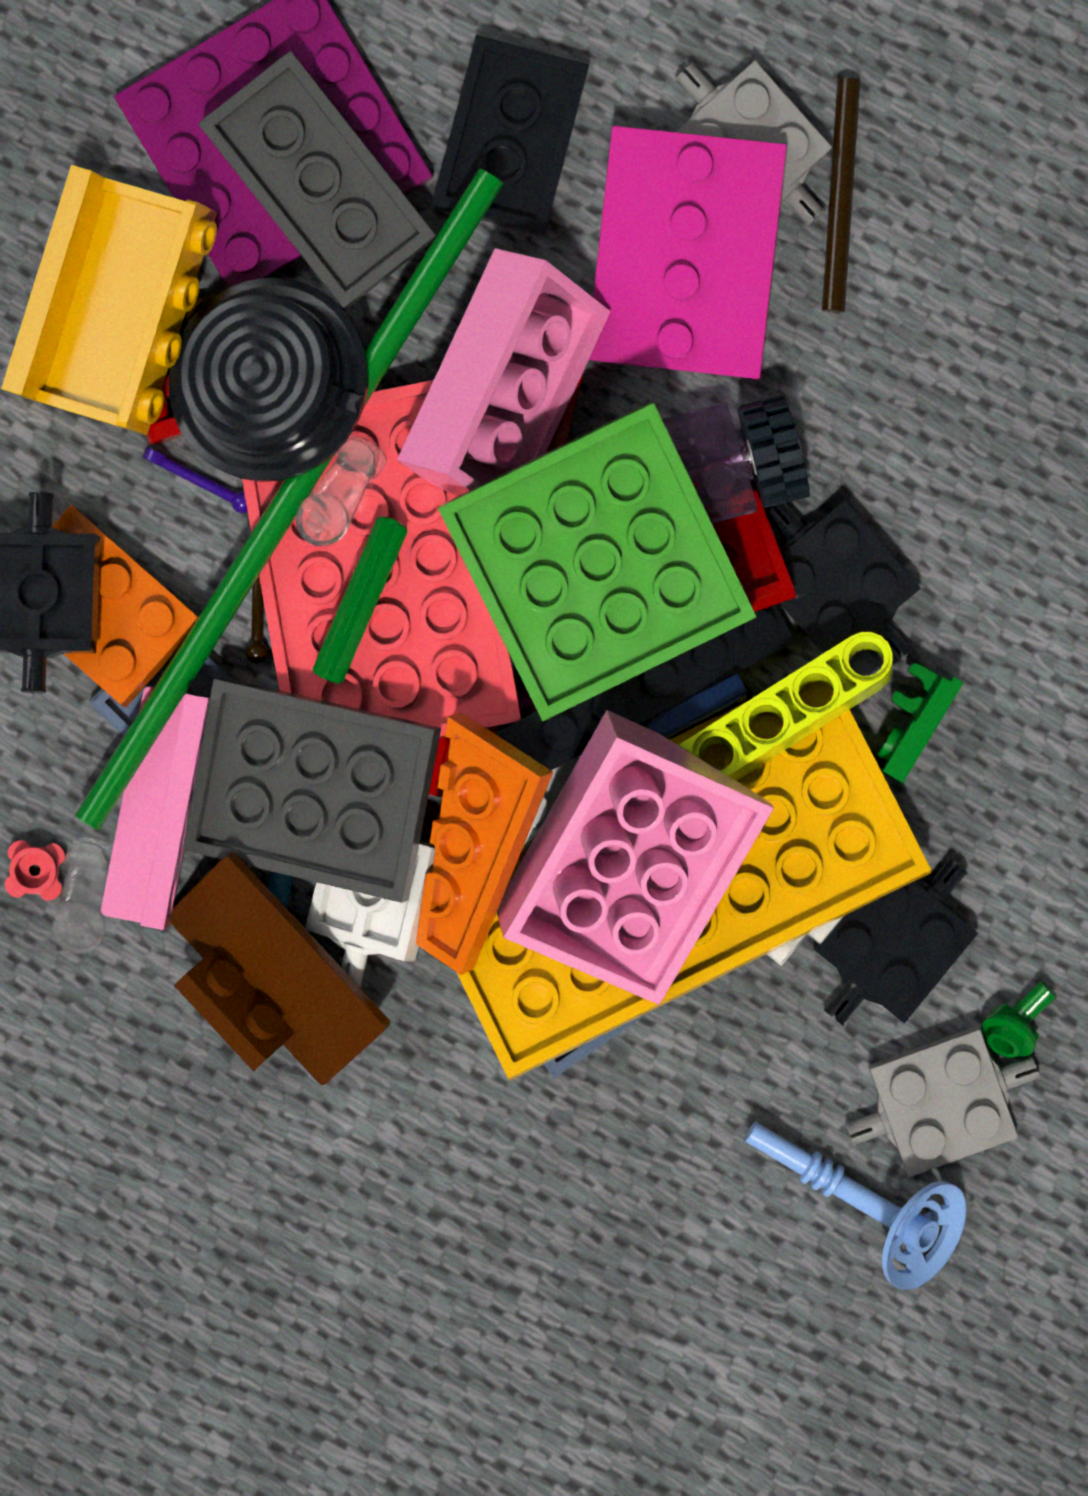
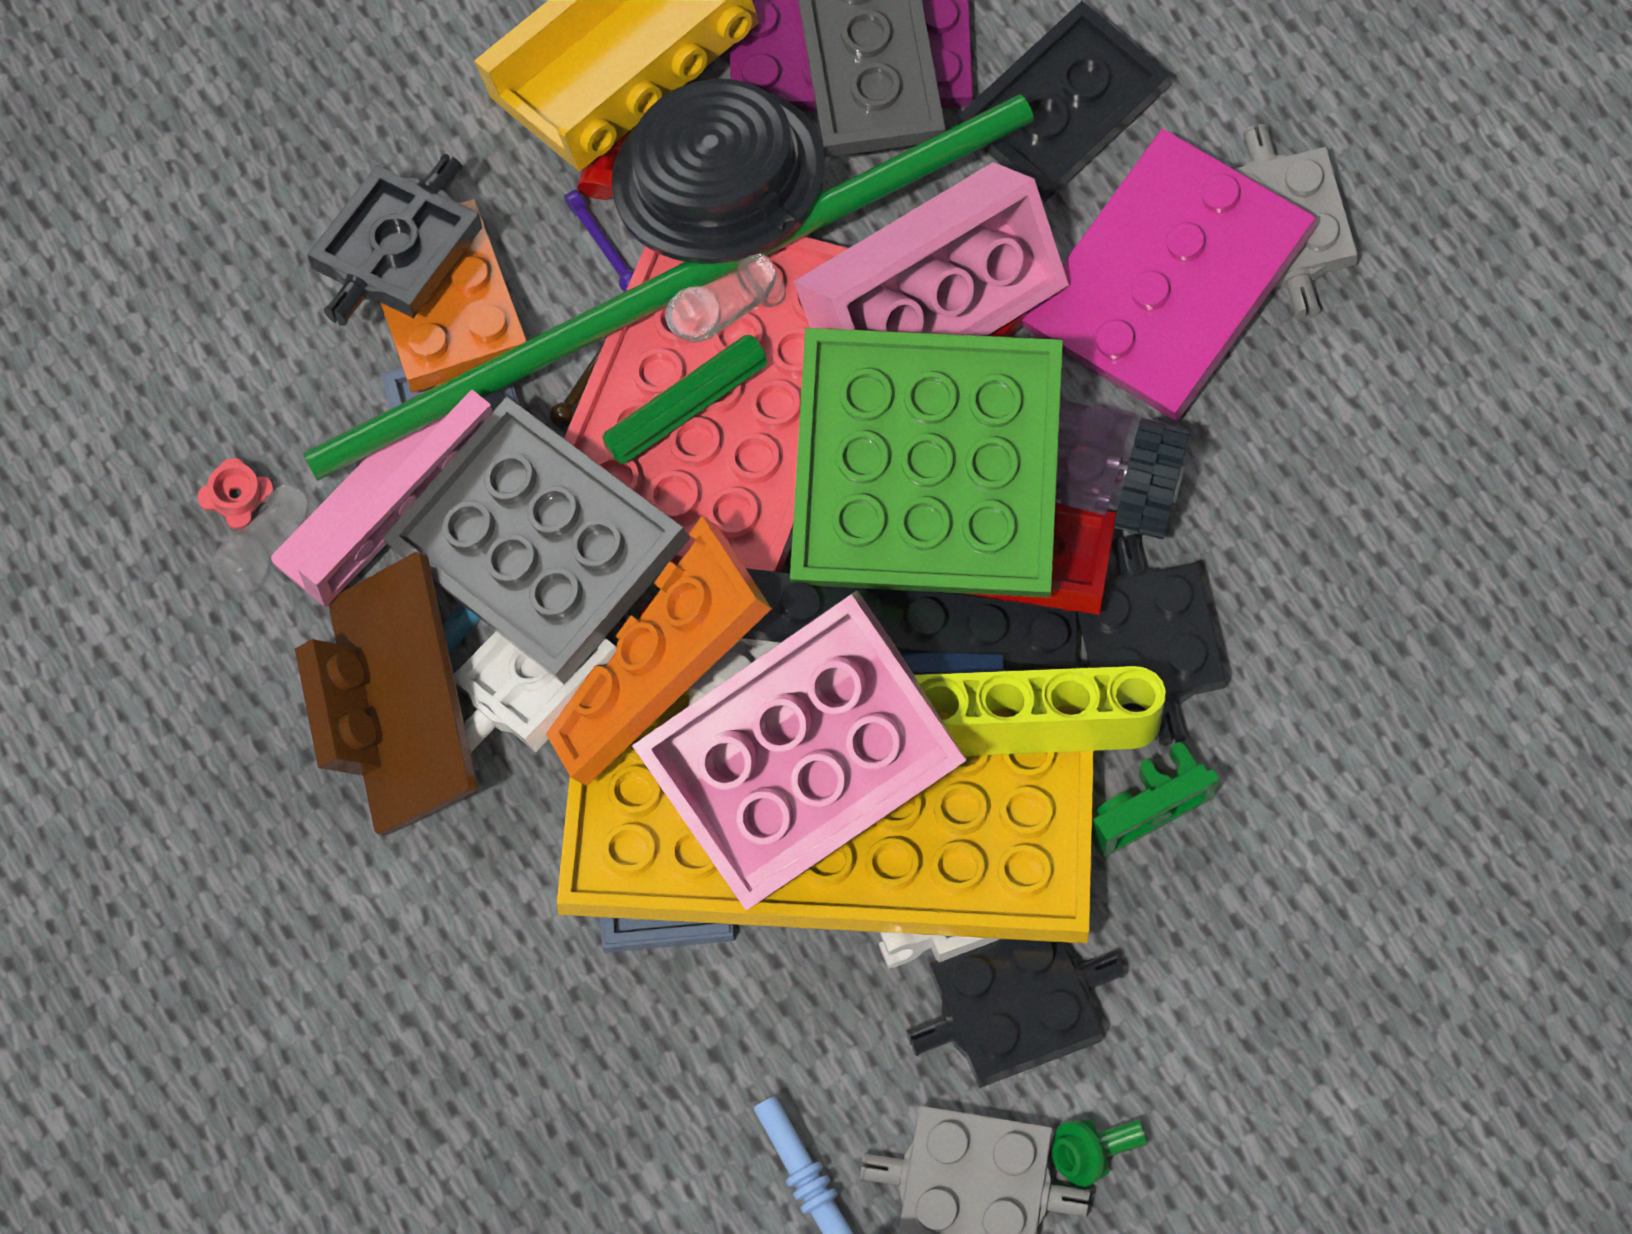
camera: 30 degrees right, 20 degrees down
(841, 195) = (1342, 308): dark brown bar -> none

